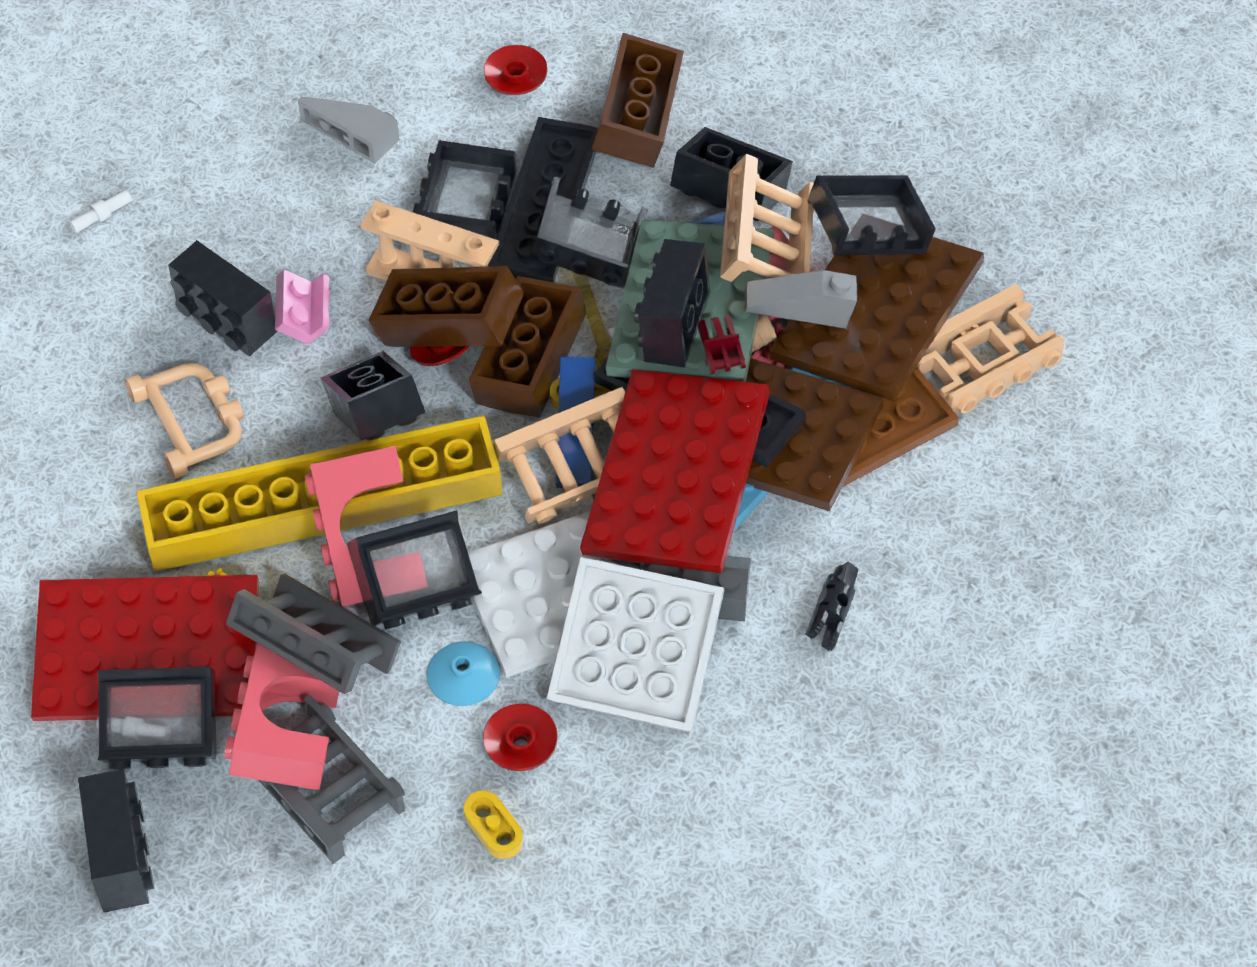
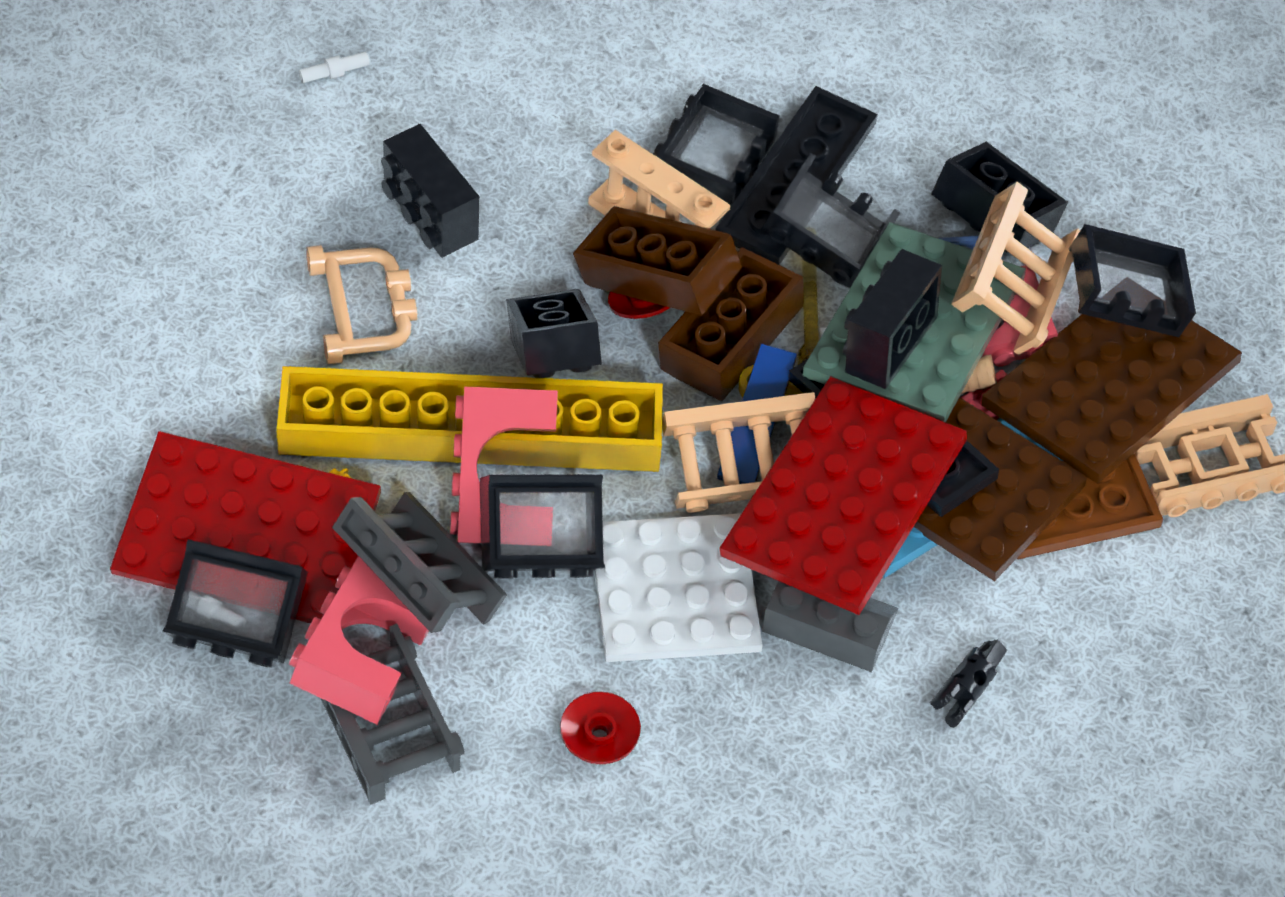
camera: 10 degrees right, 0 degrees up
(115, 840) = (155, 718): black brick -> none
(302, 306) = (510, 220): bright pink bracket -> none
(352, 125) = (622, 46): light grey slope -> none
(465, 686) = (560, 659): medium azure dish -> none
(494, 826) = (546, 812): yellow plate -> none
(512, 61) = (804, 20): red dish -> none
(635, 644) = (748, 665): white plate -> none
(638, 100) = (925, 95): reddish brown brick -> none
(721, 350) = (929, 381): dark red arm -> none
(807, 297) = (1036, 349): light grey slope -> none

